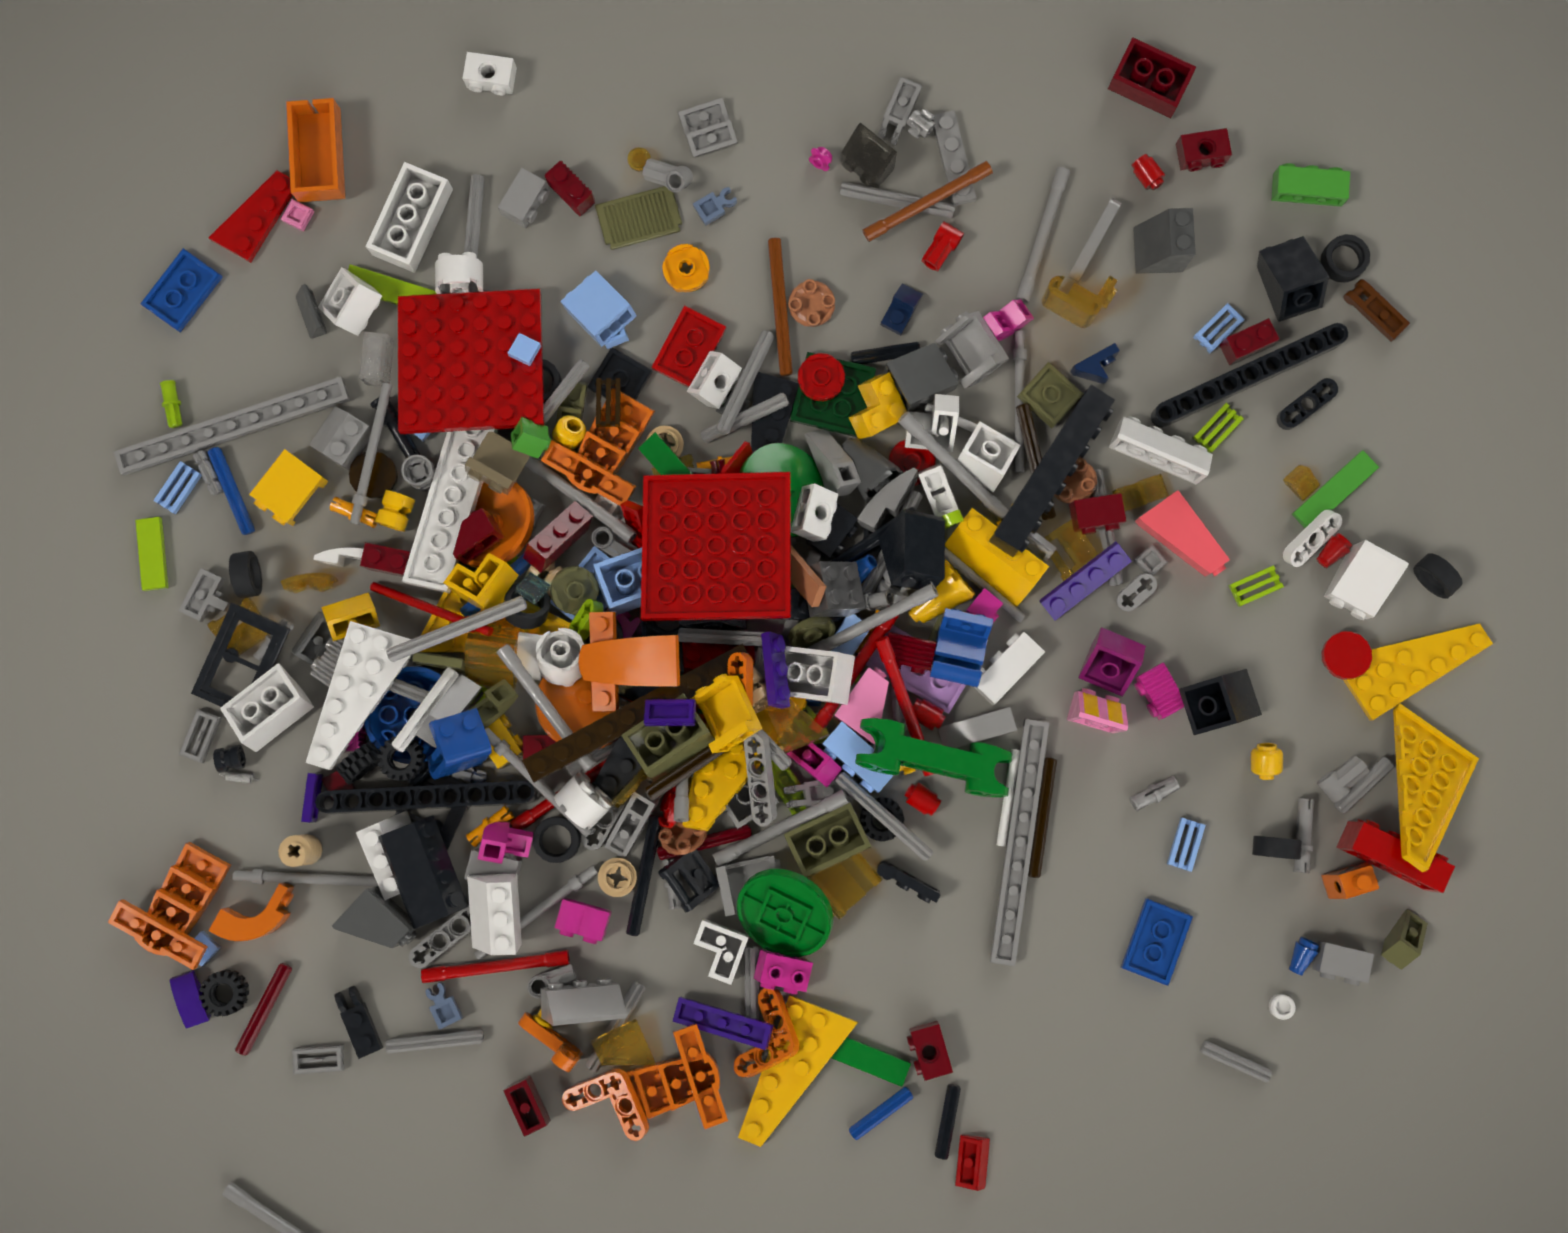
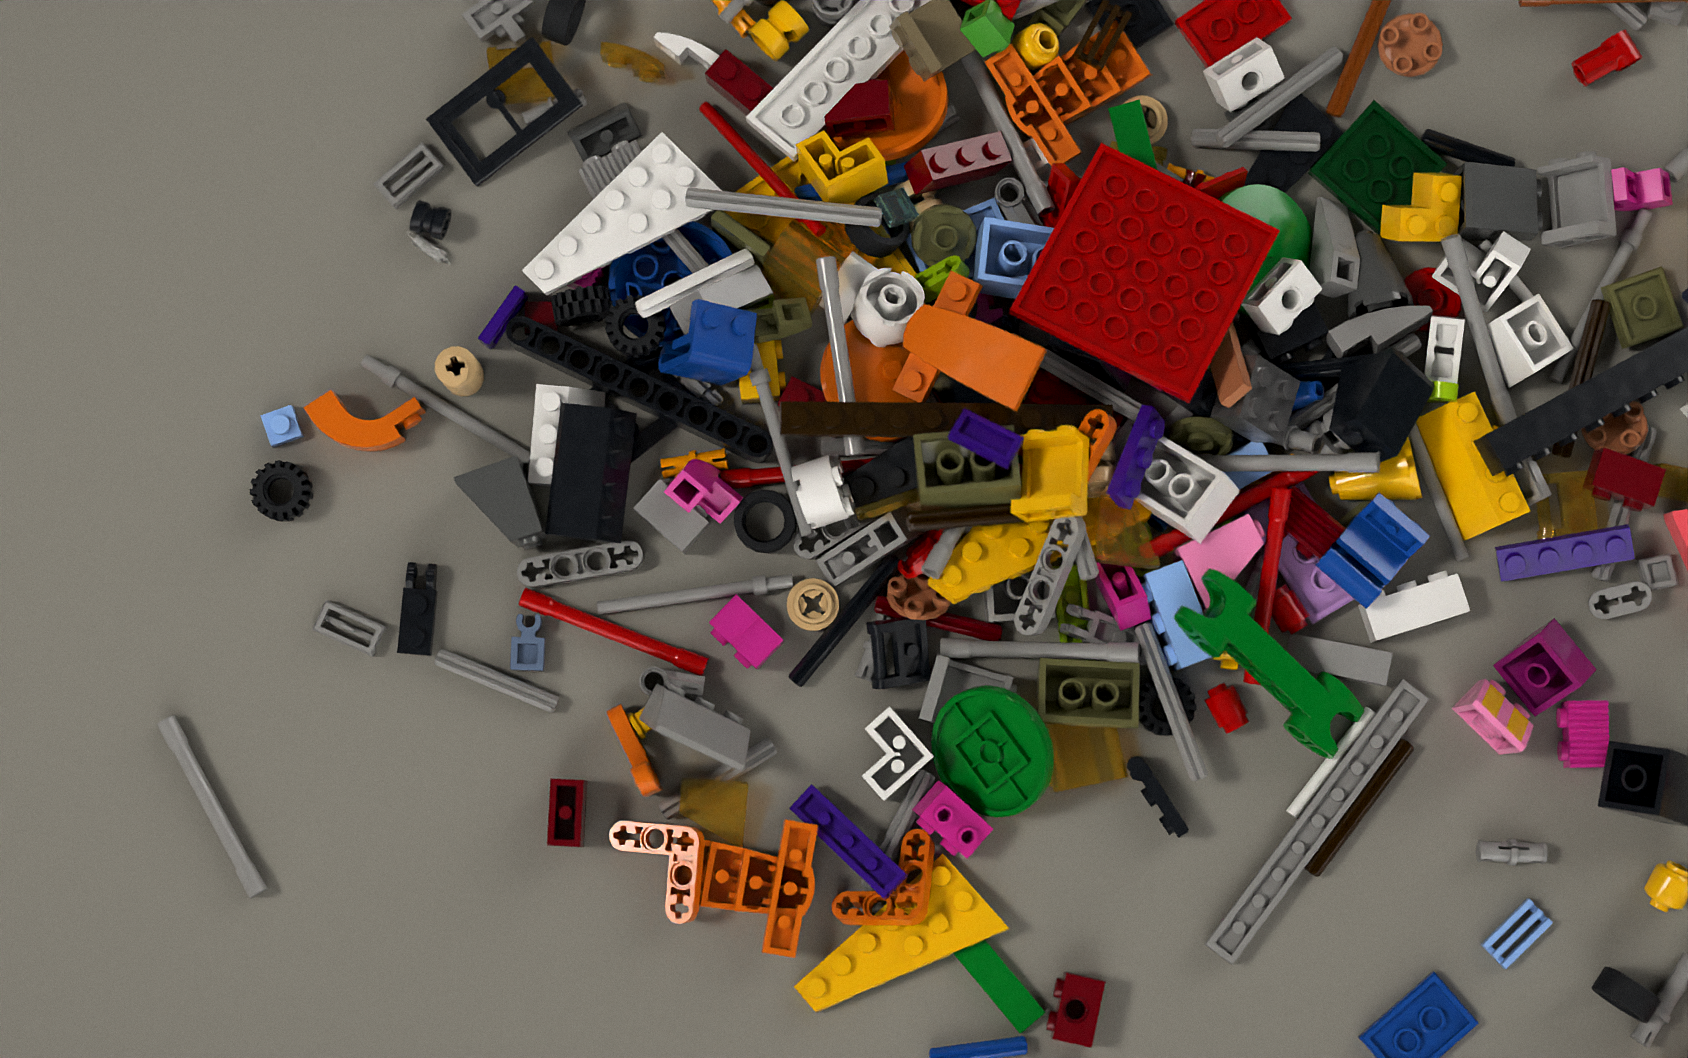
camera: 30 degrees right, 0 degrees up
(175, 907) = (278, 360): orange slope -> none
(186, 996) = (235, 476): dark purple slope -> none
(263, 1009) = (316, 535): dark red axle -> none
(266, 708) = (506, 183): white slope -> none
(355, 609) = (651, 118): yellow brick -> none
(495, 913) = (648, 566): white slope -> none
(821, 377) = (1374, 139): red tile -> none
(901, 309) = (1515, 109): dark blue slope -> none
(986, 605) = (1429, 516): dark pink brick -> none

